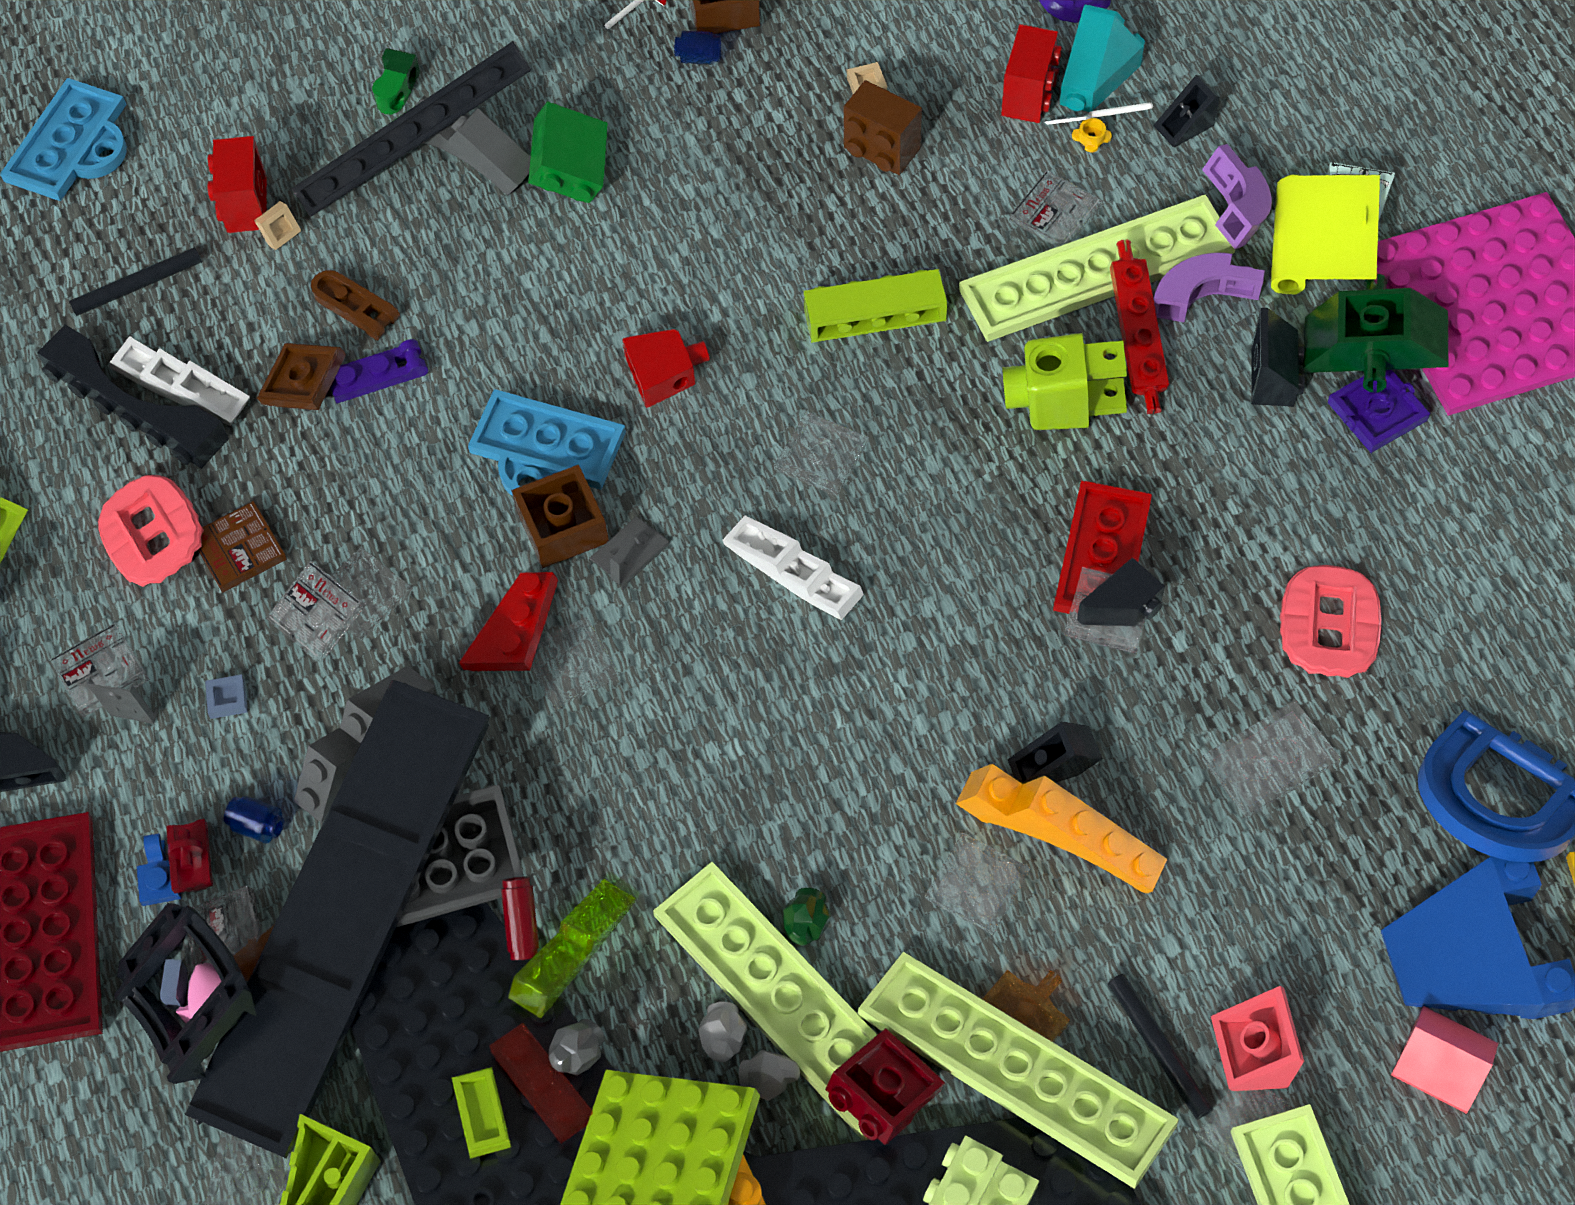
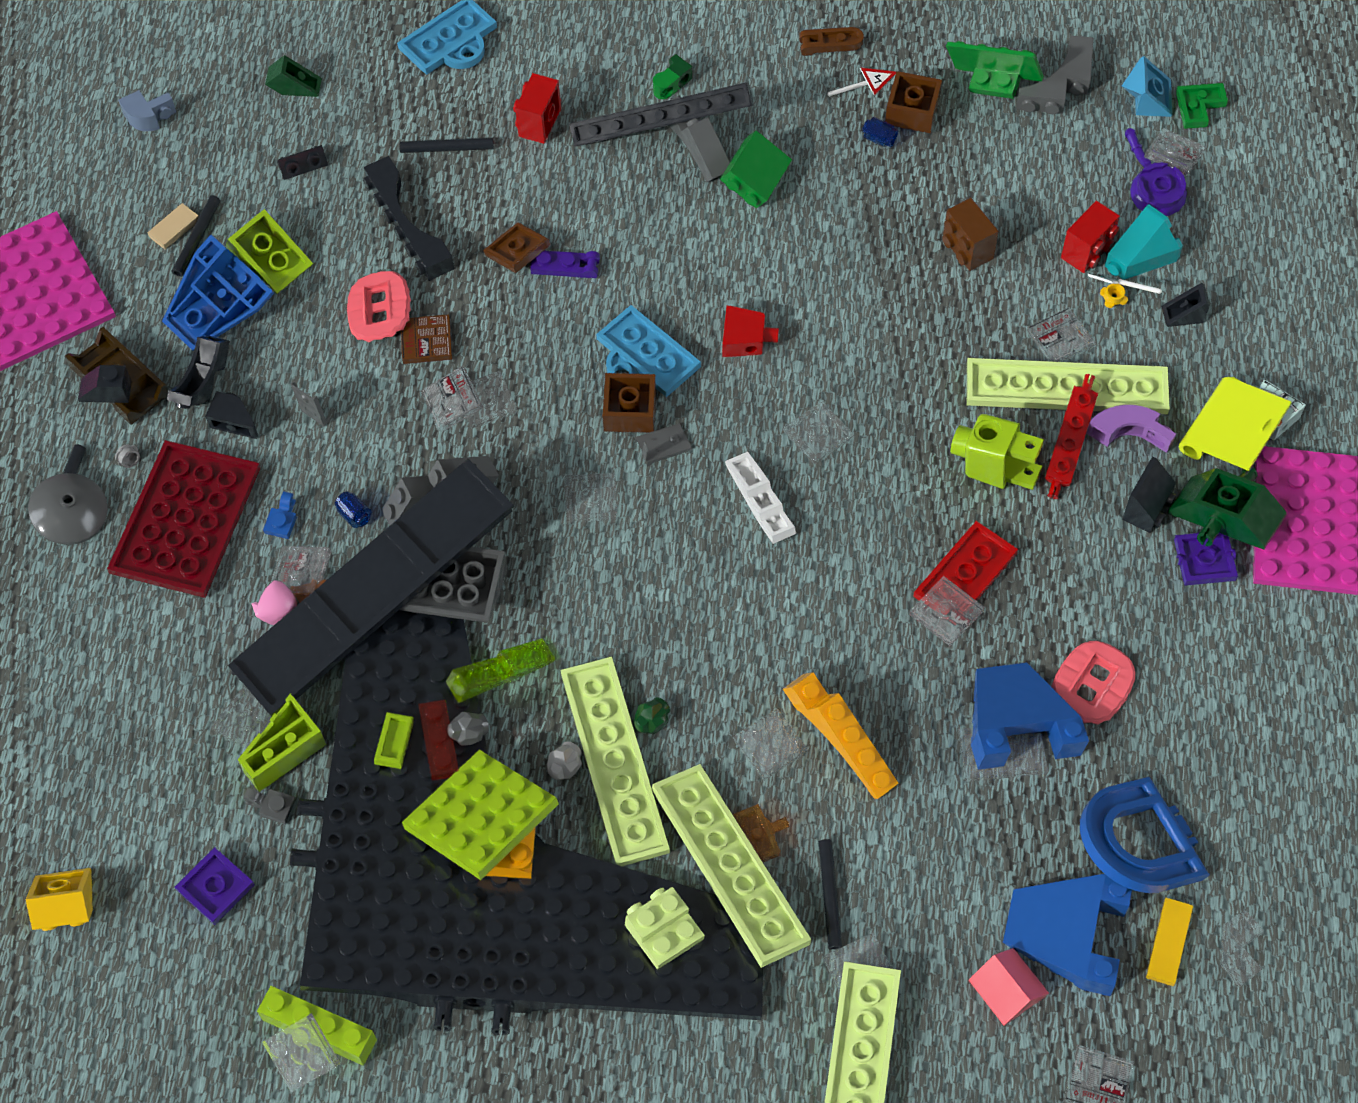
camera: 25 degrees right, 0 degrees up
(102, 658) = (311, 376): clear tile -> none
(174, 984) = (257, 586): sand blue tile -> none
(179, 381) = (441, 220): white slope -> none
(187, 1046) = (244, 622): black wedge -> none
(189, 856) = (303, 515): dark red hips -> none
(226, 696) = (373, 428): sand blue tile -> none
(277, 225) = (550, 144): tan plate -> none
(353, 302) = (572, 213): reddish brown plate -> none
(515, 626) = (568, 460): red wing -> none
(520, 918) = (475, 636): dark red piece -> none
(768, 1073) = (577, 798): light grey rock -> none
(868, 72) = (982, 197): tan plate -> none
(875, 305) = (903, 350): lime brick -> none
(883, 1087) = (640, 836): dark red plate -> none
(1057, 754) = (863, 687): black slope -> none
(1123, 598) = (955, 606): black slope -> none
(1245, 193) = (1195, 377): medium lavender arch -> none
(1258, 1042) = (889, 919): coral slope -> none
(1260, 688) = (1020, 702): none -> blue wedge

